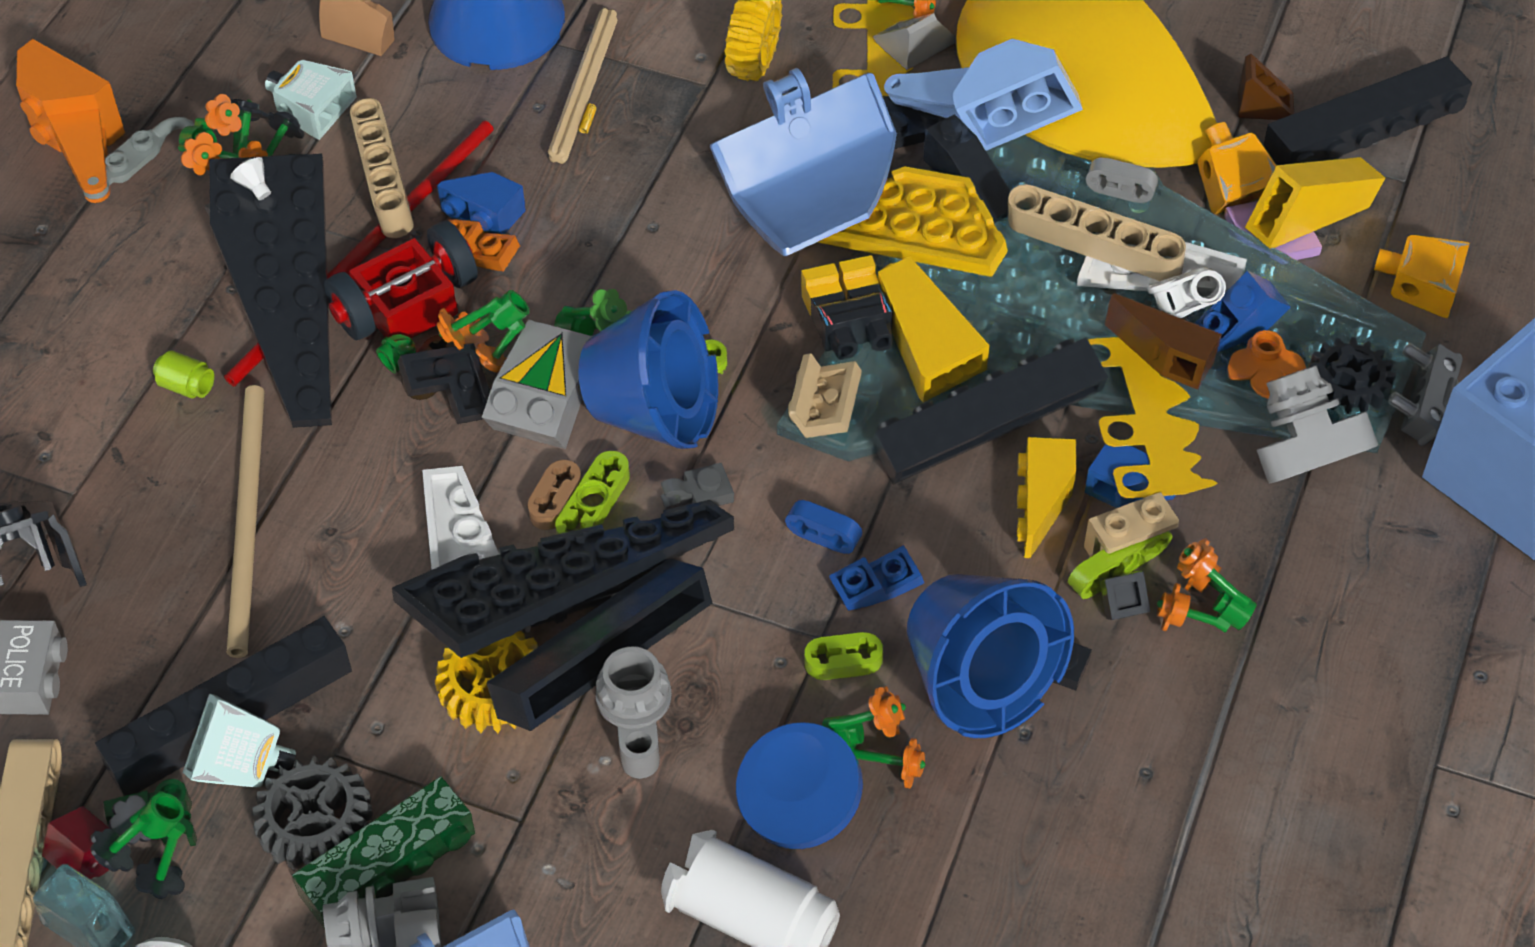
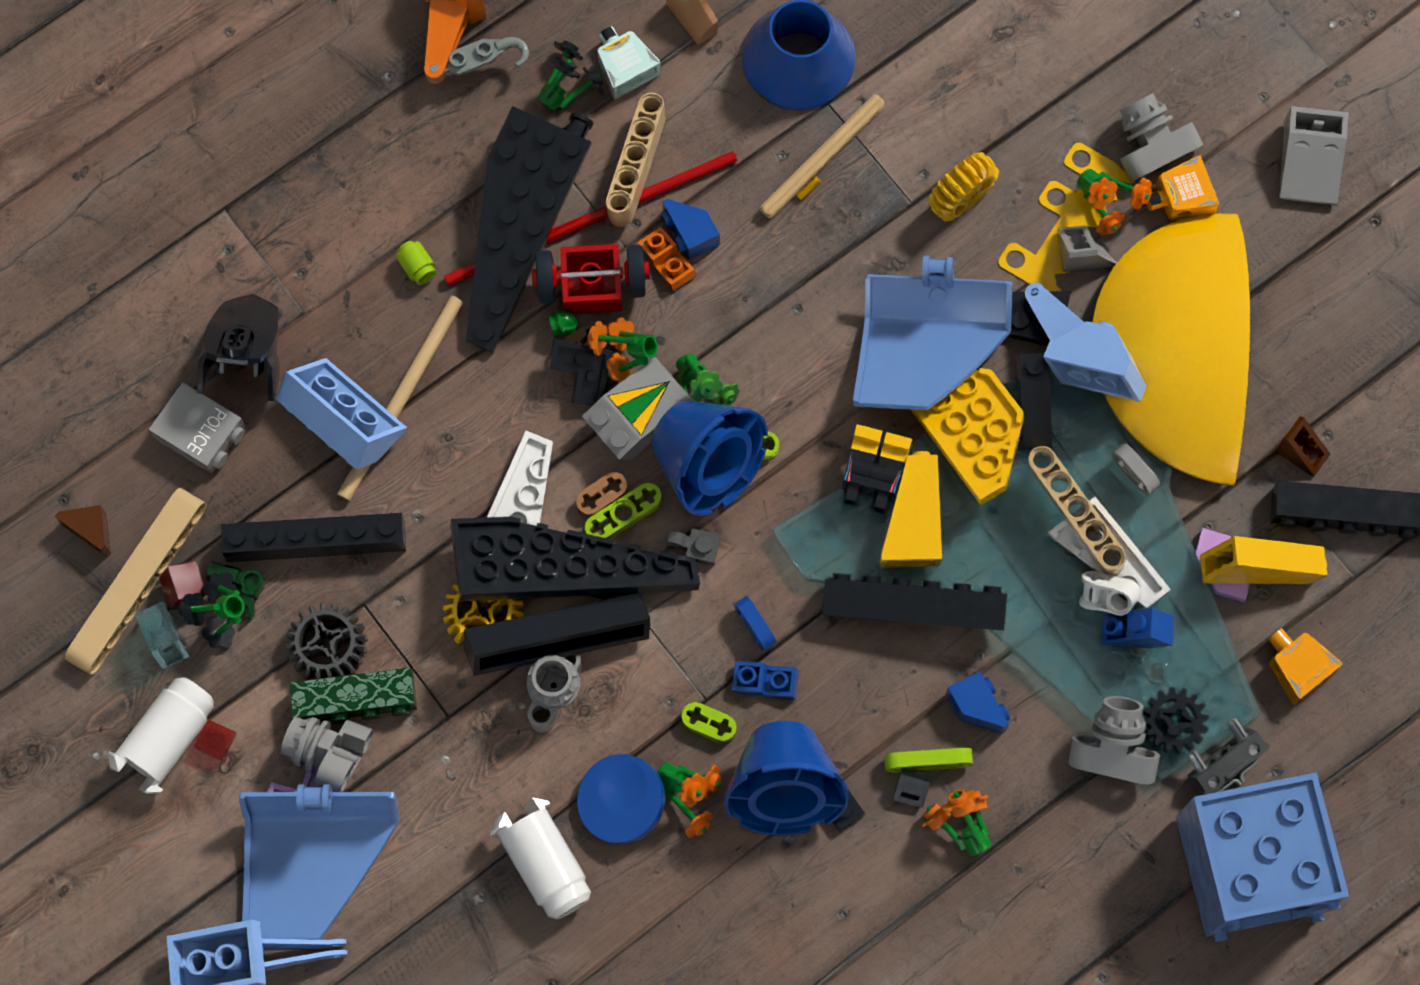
camera: 30 degrees right, 20 degrees up
(178, 561) = (339, 412): none -> light blue slope
(200, 142) = (532, 73): orange plant -> none
(235, 747) = (301, 574): light aqua torso -> none
(251, 175) = (529, 141): white rock -> none
(824, 397) = (811, 530): tan bracket -> none
(1048, 486) = (920, 678): yellow slope -> none
(1129, 524) = (947, 745): tan bracket -> none
(1153, 427) = (1015, 682): yellow piece -> none
(1163, 340) = (1069, 626): reddish brown slope -> none
(1233, 168) = (1227, 504): light orange torso -> none
(1264, 361) = (1125, 680): orange plate -> none

